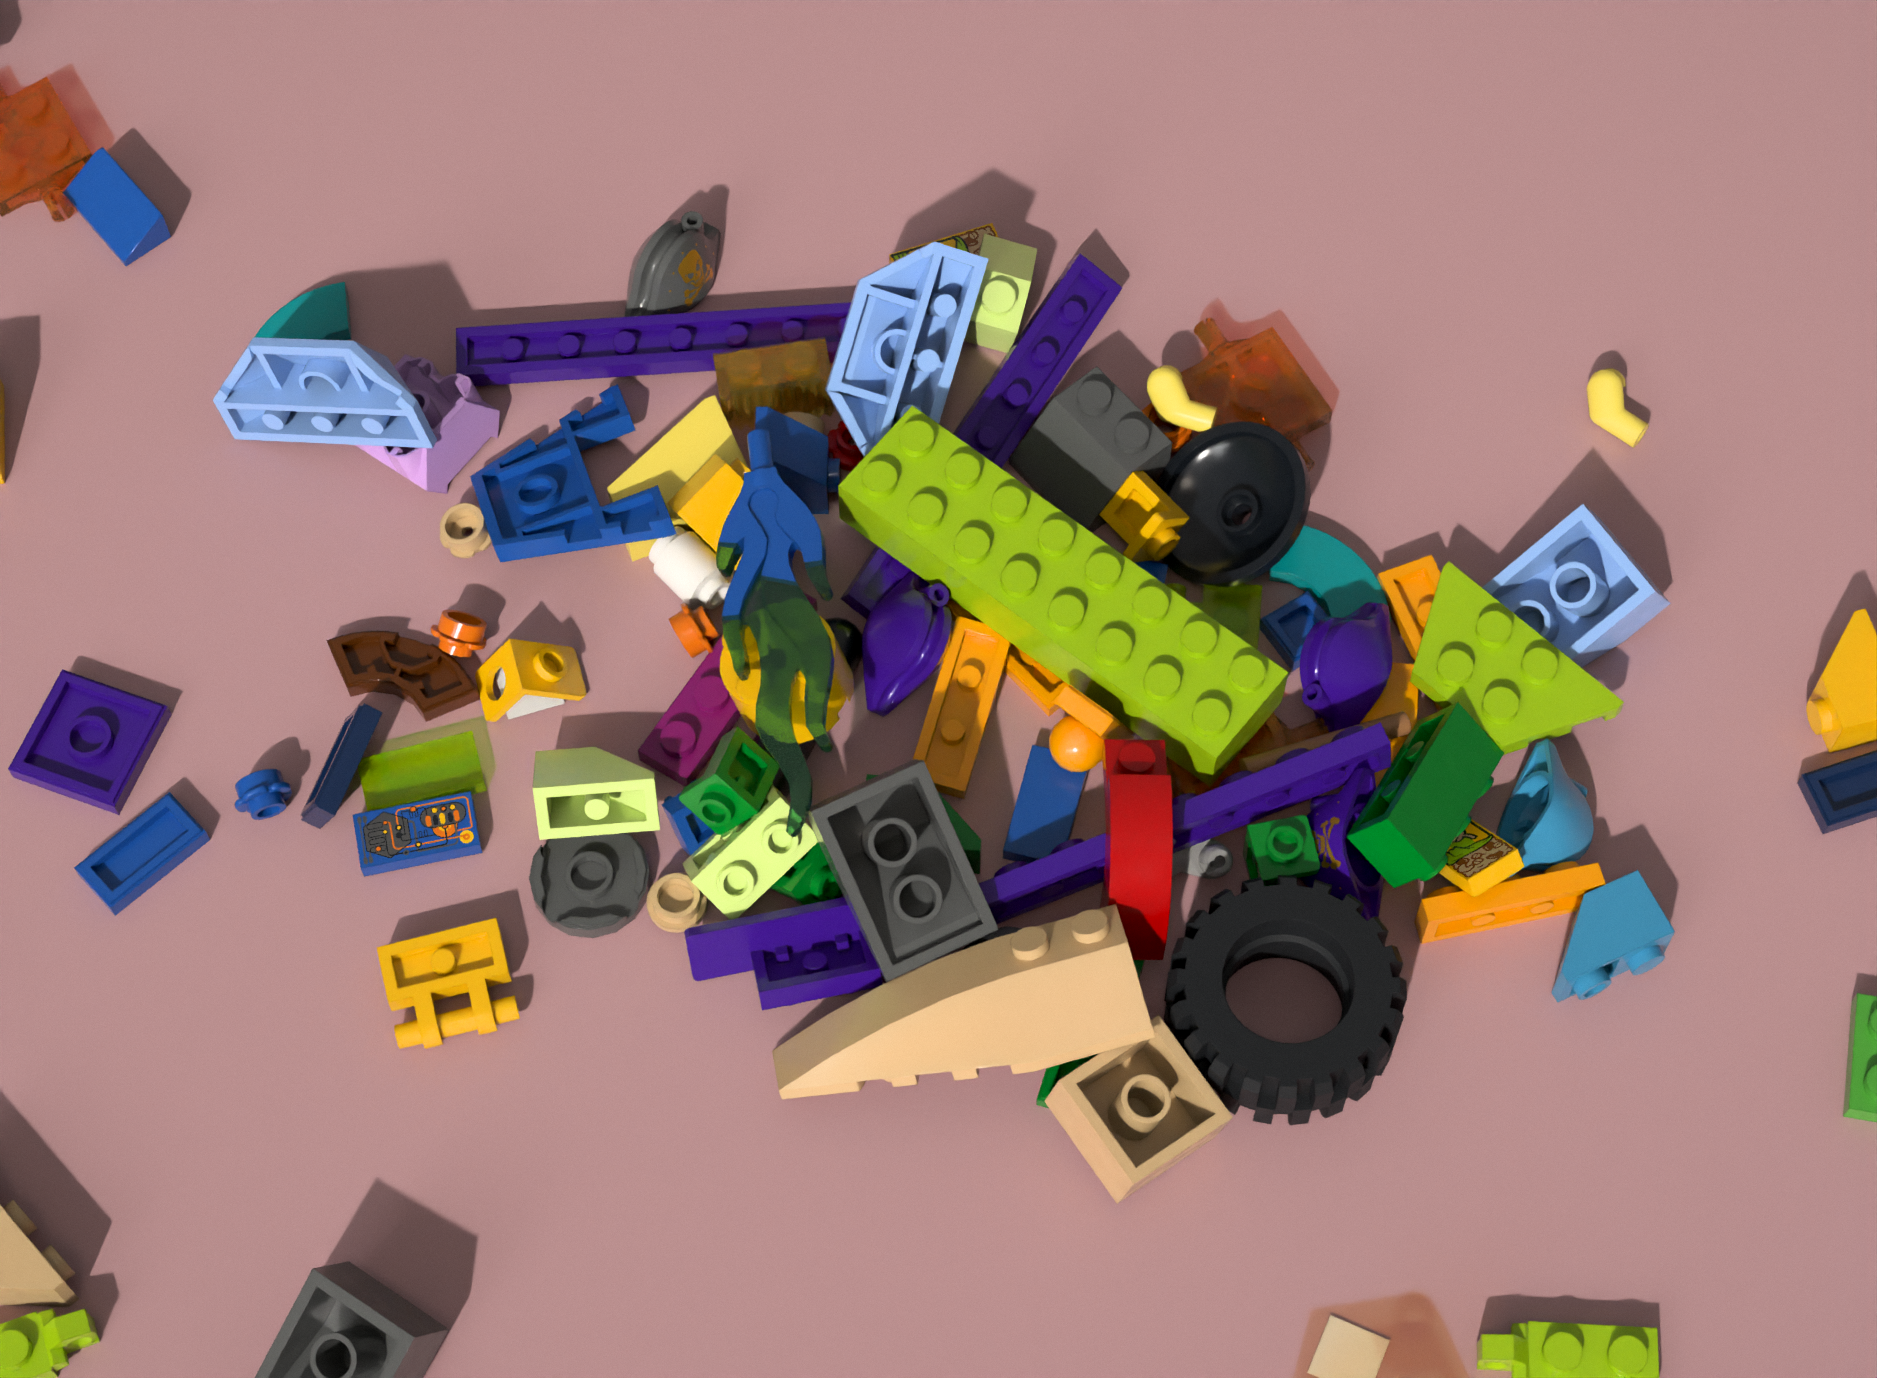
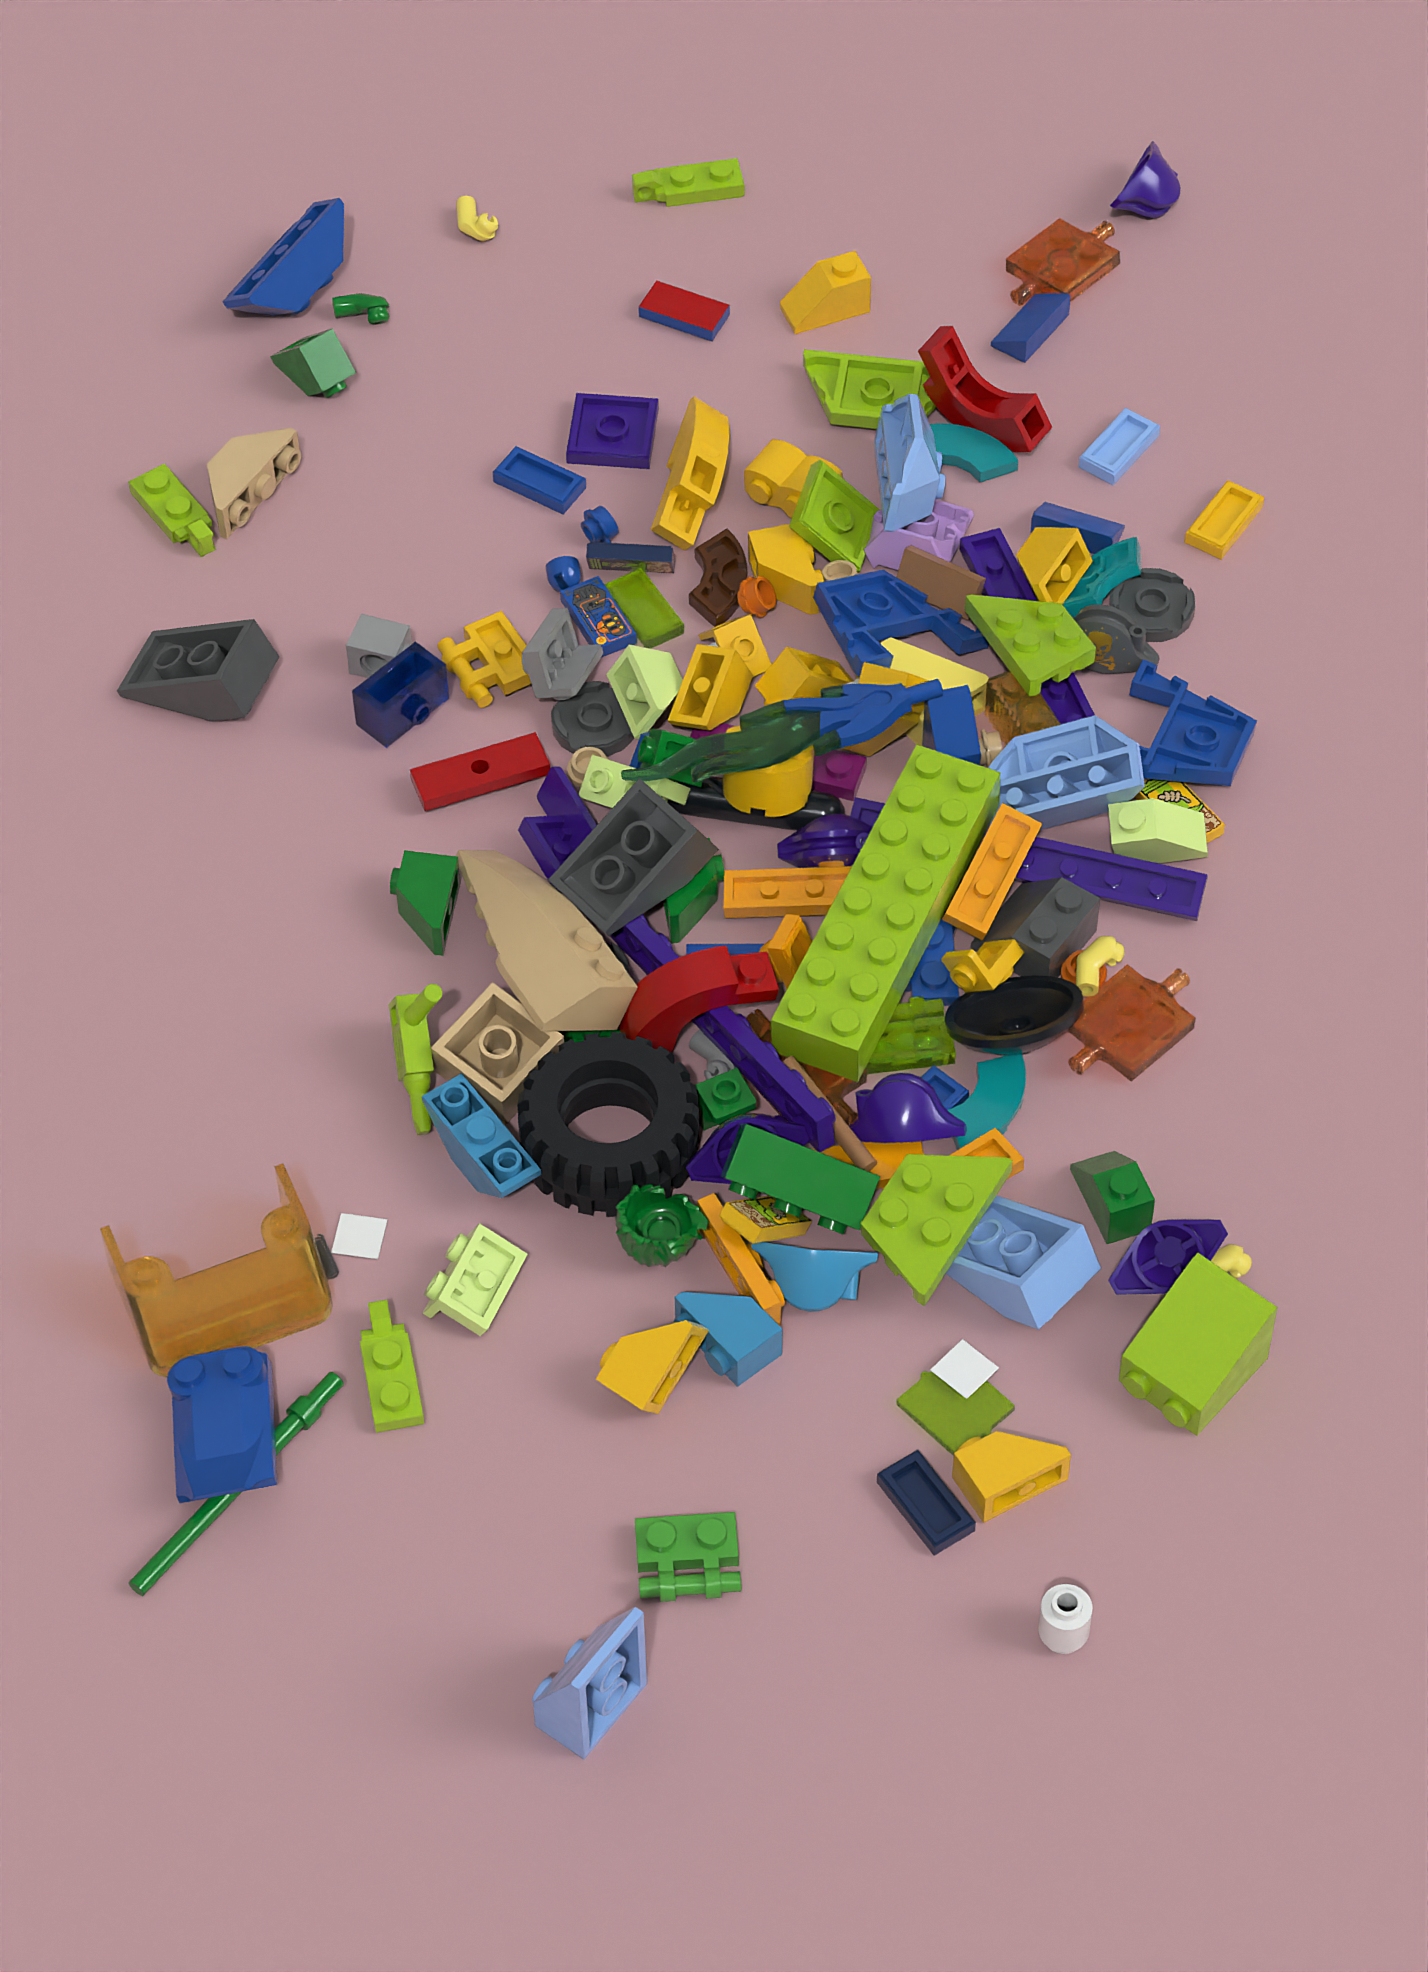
camera: 75 degrees right, 10 degrees down
(156, 410) = (857, 386): none -> lime wing
(211, 637) = (695, 474): none -> yellow slope
(241, 298) = (973, 402): none -> red arch
(281, 541) = (779, 475): none -> yellow brick
(328, 858) = (563, 572): none -> blue hinge
(357, 172) = (1119, 446): none -> light blue tile
(374, 503) = (833, 516): none -> lime plate
(386, 1120) = (375, 644): none -> light grey brick
(418, 582) = (787, 564): none -> yellow slope
(475, 251) = (1095, 531): none -> blue slope
(491, 1105) = (400, 694): none -> clear blue brick
(504, 884) = (556, 660): none -> light grey bracket
(518, 97) = (1224, 519): none -> yellow tile
(519, 413) = (939, 579): none -> medium nougat tile
(542, 287) = (1054, 562): none -> yellow slope
(568, 250) = (1106, 571): none -> teal tile
(620, 719) = (711, 688): none -> yellow slope
(622, 205) = (1156, 602): none -> dark grey tile
(635, 612) = (800, 676): none -> yellow slope
(637, 1007) = (480, 771): none -> red tile
(673, 331) = (1032, 638): none -> lime wing
(840, 1149) = (427, 895): none -> green slope
(848, 205) = (1198, 736): none -> blue wing
(1007, 448) = (992, 871): none -> light orange plate
(1102, 1213) = (414, 1048): none -> lime piece
(1276, 1160) = (478, 1139): none -> dark azure slope
(1452, 976) = (656, 1227): none -> green hair
(1464, 1224) = (475, 1279): none -> yellowish green bracket
(1490, 476) = (1115, 1195): none -> green slope
(1608, 438) = (1163, 1253): none -> dark purple hat
(1651, 1031) = (650, 1363): none -> yellow slope
(1695, 698) = (964, 1369): none -> white sticker
(1736, 445) = (1199, 1345): none -> lime slope
(1736, 723) = (951, 1416): none -> clear neon green piece

